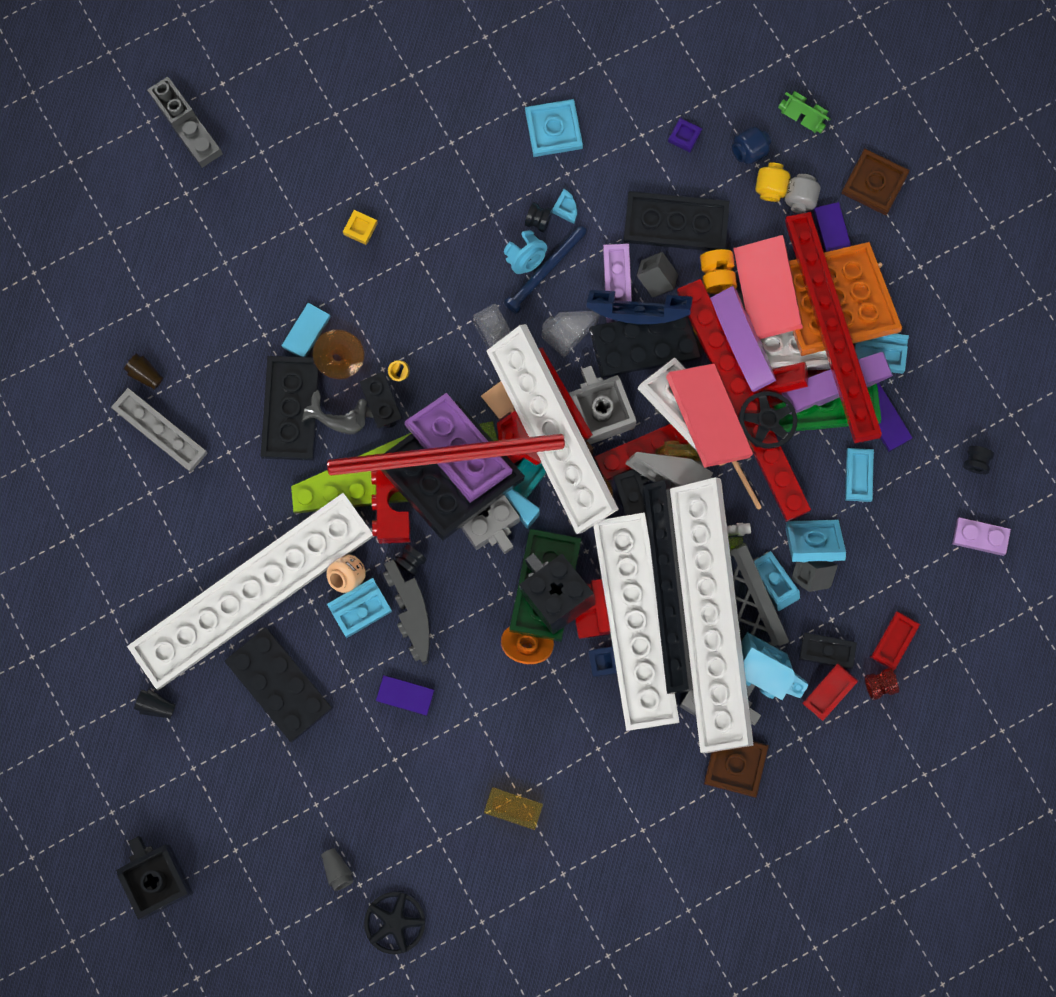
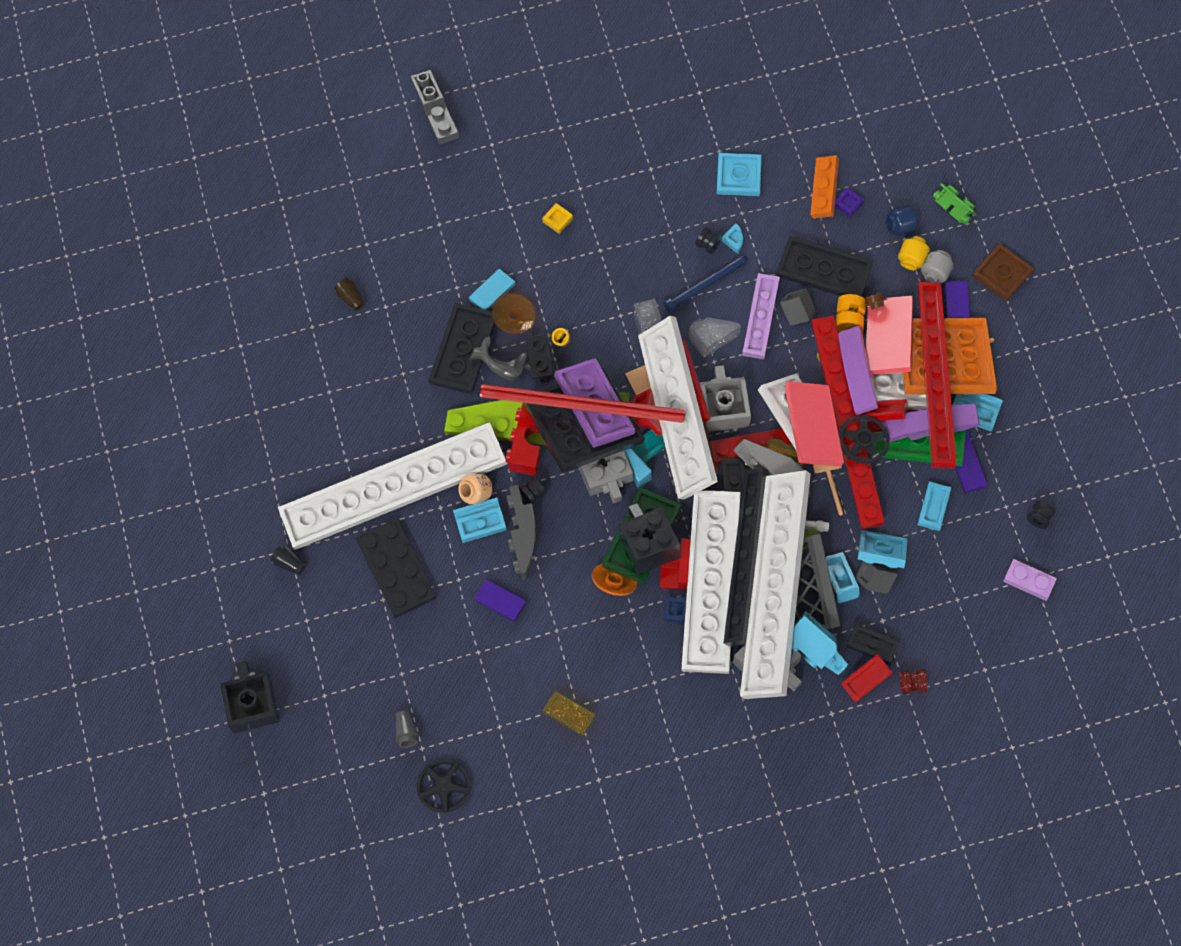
camera: 15 degrees right, 10 degrees down
(159, 430) = (350, 342): light grey plate -> none
(519, 257) = (684, 266): medium azure piece -> none
(638, 347) = (773, 357): black plate -> none
(639, 312) = (748, 319): dark blue slope -> none
(654, 123) = (824, 187): none -> orange plate
(737, 769) = (770, 723): reddish brown tile -> none
(743, 250) = (875, 300): none -> reddish brown plate
(895, 640) = (934, 649): red tile -> none

